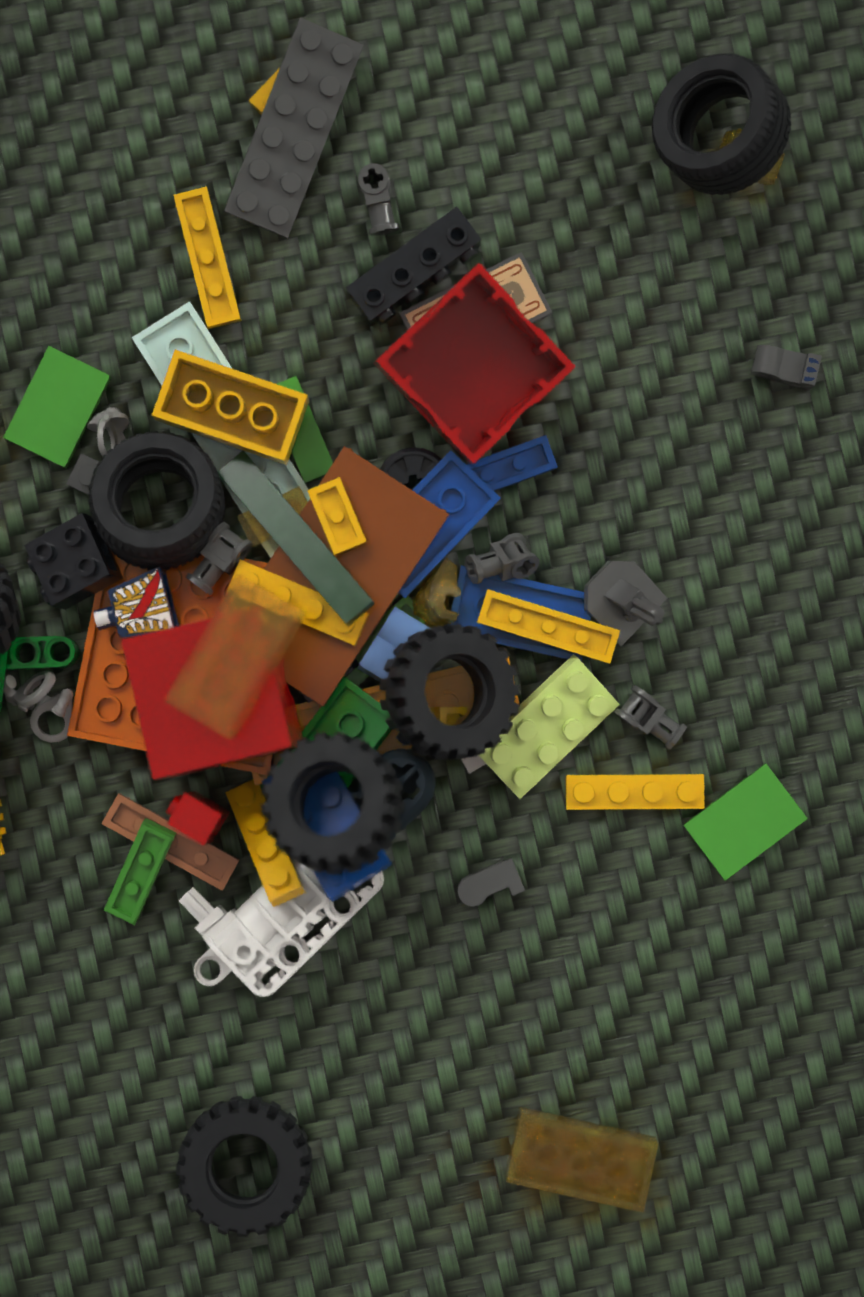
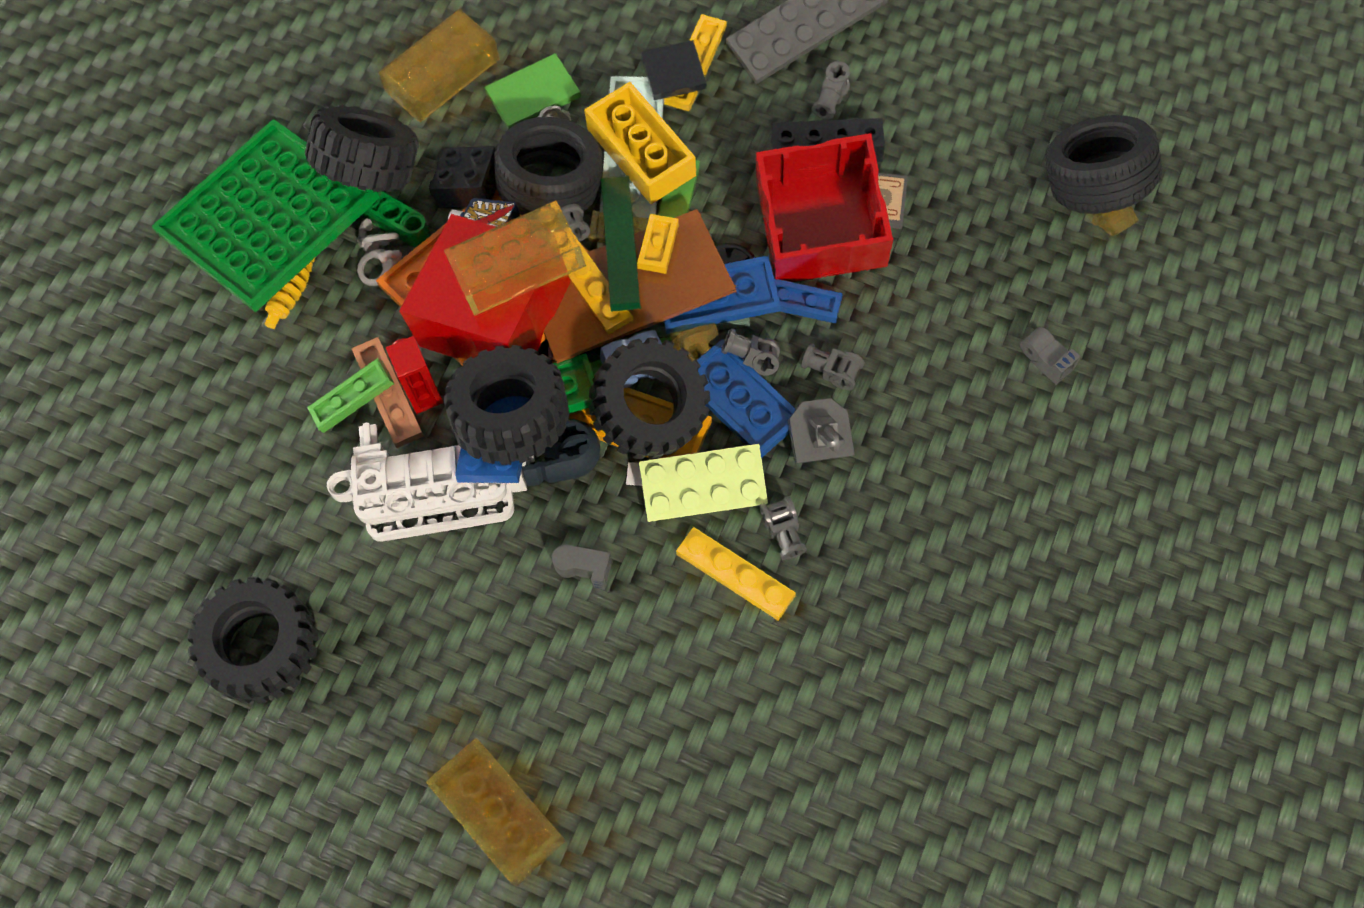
camera: 40 degrees right, 20 degrees down
(196, 288) = (673, 70): none -> black tile
(273, 865) = (436, 438): yellow plate -> none
(548, 626) = (754, 412): yellow plate -> none
(589, 519) = (834, 365): none -> dark grey connector
(745, 821) = (803, 649): bright green tile -> none

